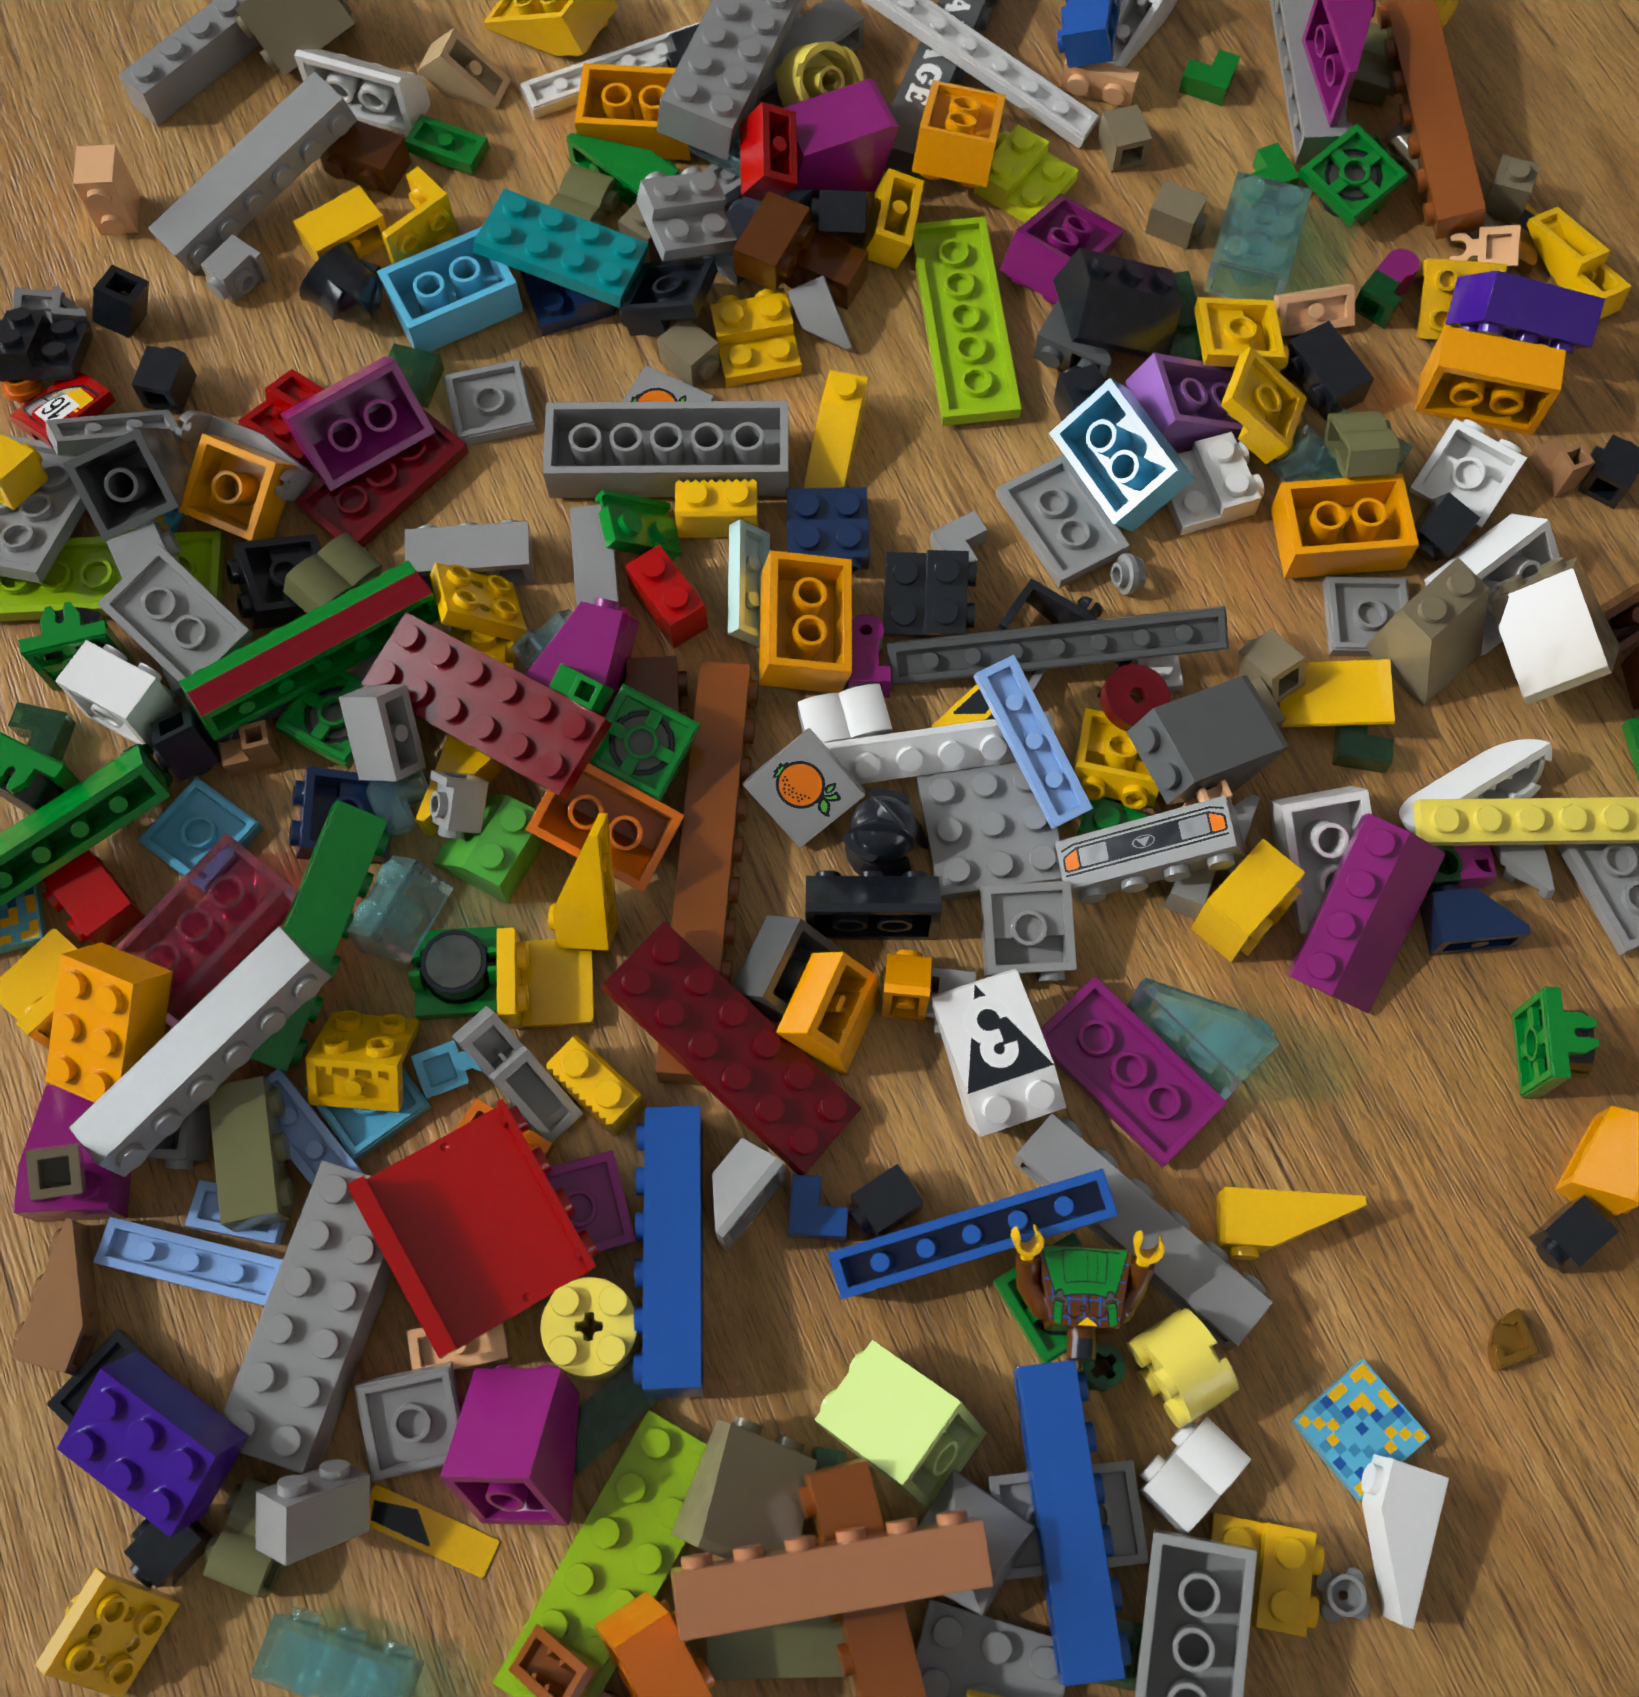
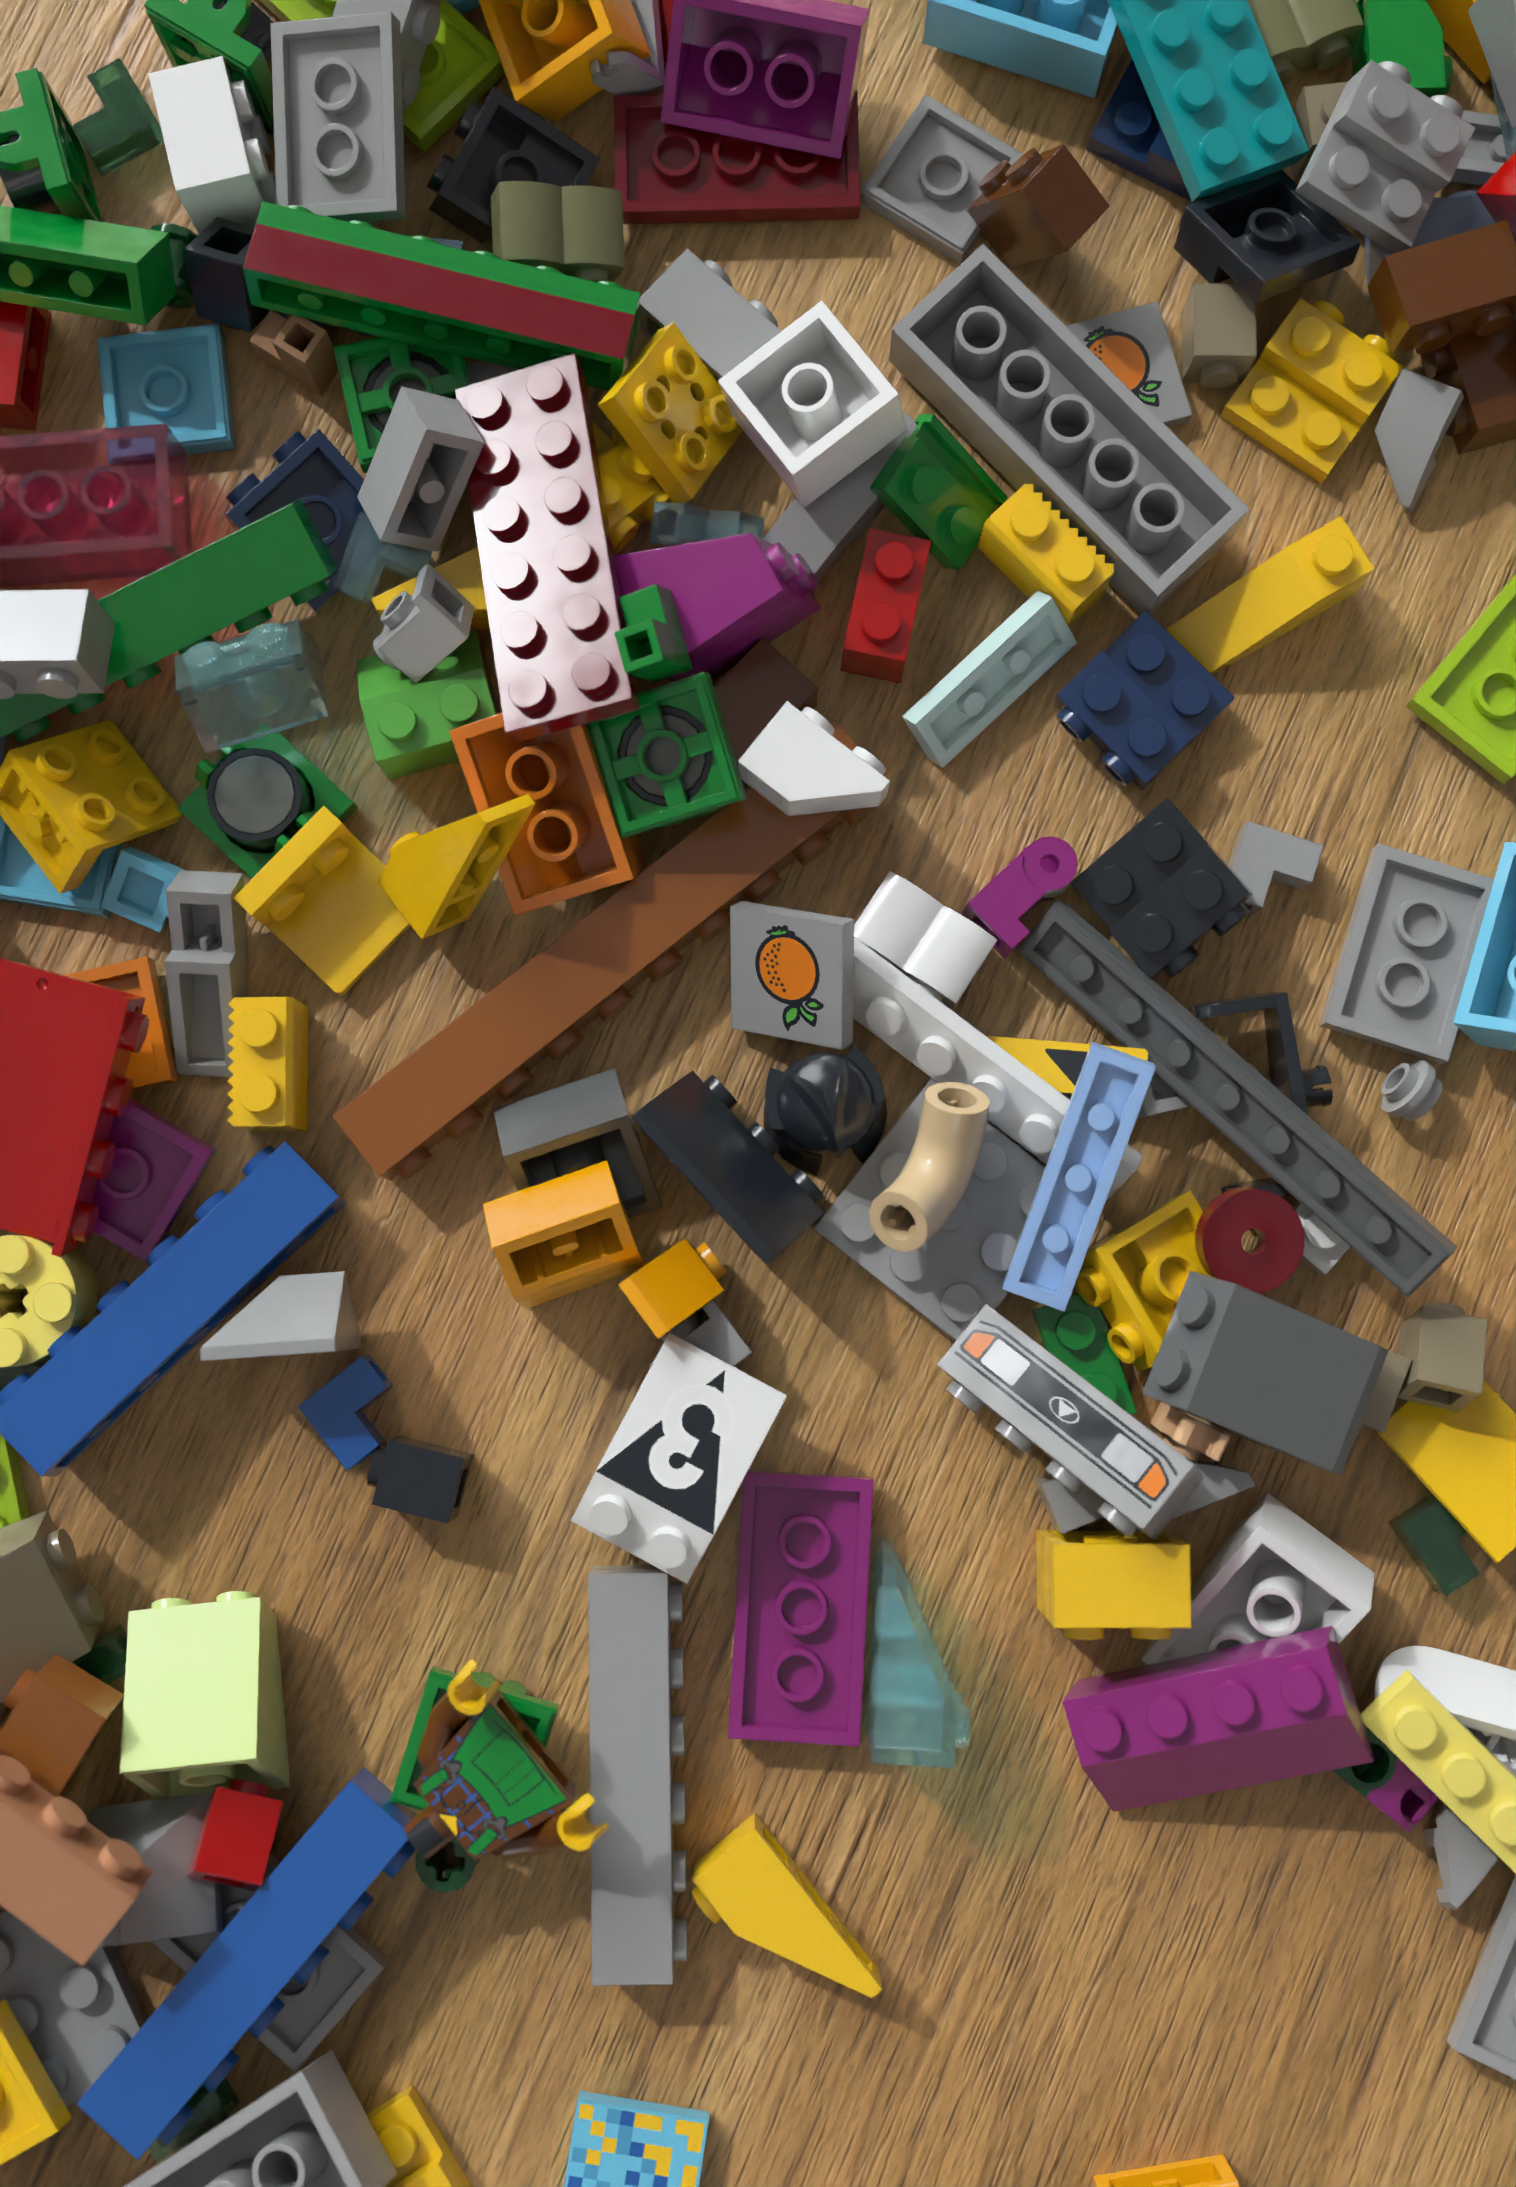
camera: 50 degrees right, 15 degrees up
(420, 369) = (905, 63): clear green piece -> none
(544, 532) = (813, 403): none -> white brick
(551, 367) = (1036, 205): none -> reddish brown brick
(716, 686) = (809, 770): none -> white slope
(731, 1048) = (426, 1168): dark red plate -> none
(805, 622) = (995, 788): light orange brick -> none
(965, 801) = (937, 1167): none -> tan cylinder
(972, 1233) = (457, 1612): blue brick -> none
(992, 1467) = (236, 1835): none -> red brick
(1028, 929) = (854, 1365): light grey plate -> none
(1182, 1366) = (515, 1944): light yellow brick -> none
(1193, 1474) = (425, 2041): white brick -> none
(1468, 922) = (1325, 1838): dark blue slope -> none
(1551, 1043) = (1251, 2058): green piece -> none

